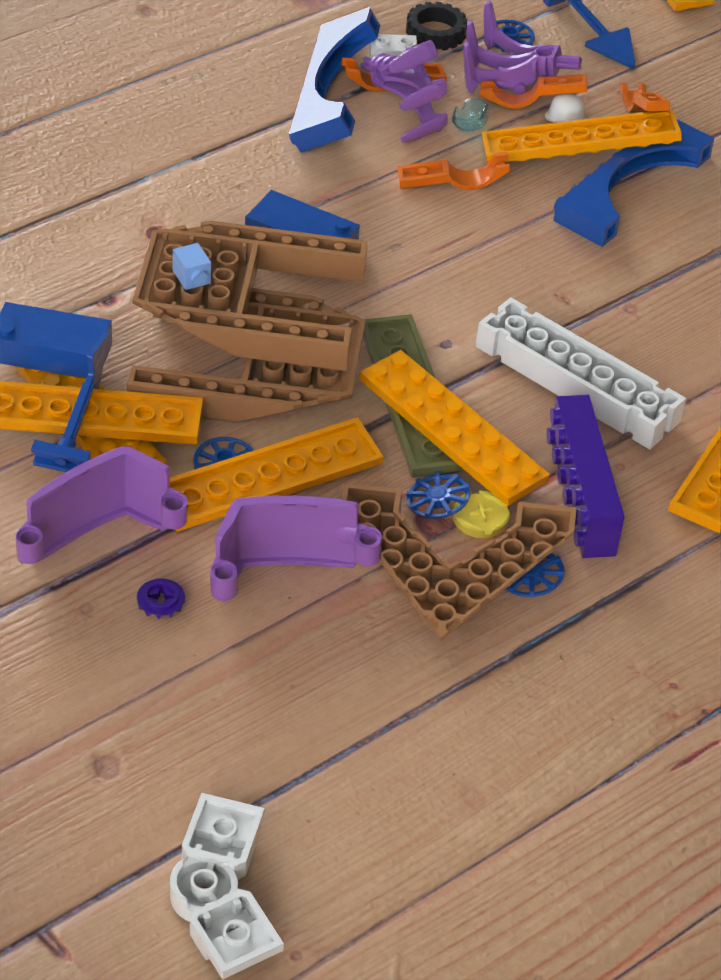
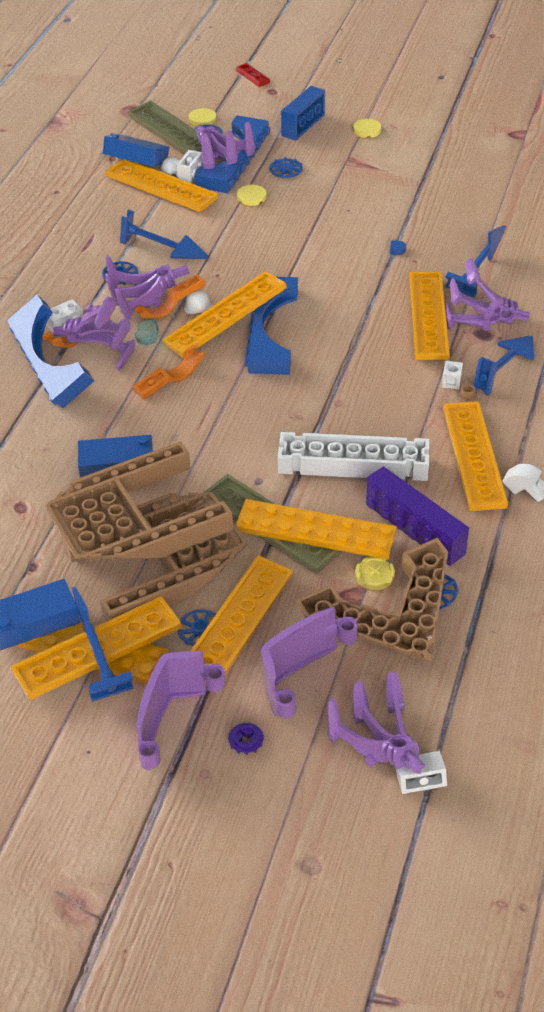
camera: 30 degrees left, 0 degrees up
(191, 266) = (96, 515): light blue brick -> none
(215, 855) = (473, 913): white plate -> none
(302, 701) = (397, 749): none -> medium lavender piece
(311, 744) = (431, 777): none -> white brick
(437, 13) = (74, 277): black tyre -> none
(438, 495) = (344, 575): blue wheel -> none
(641, 101) = (229, 277): orange piece -> none

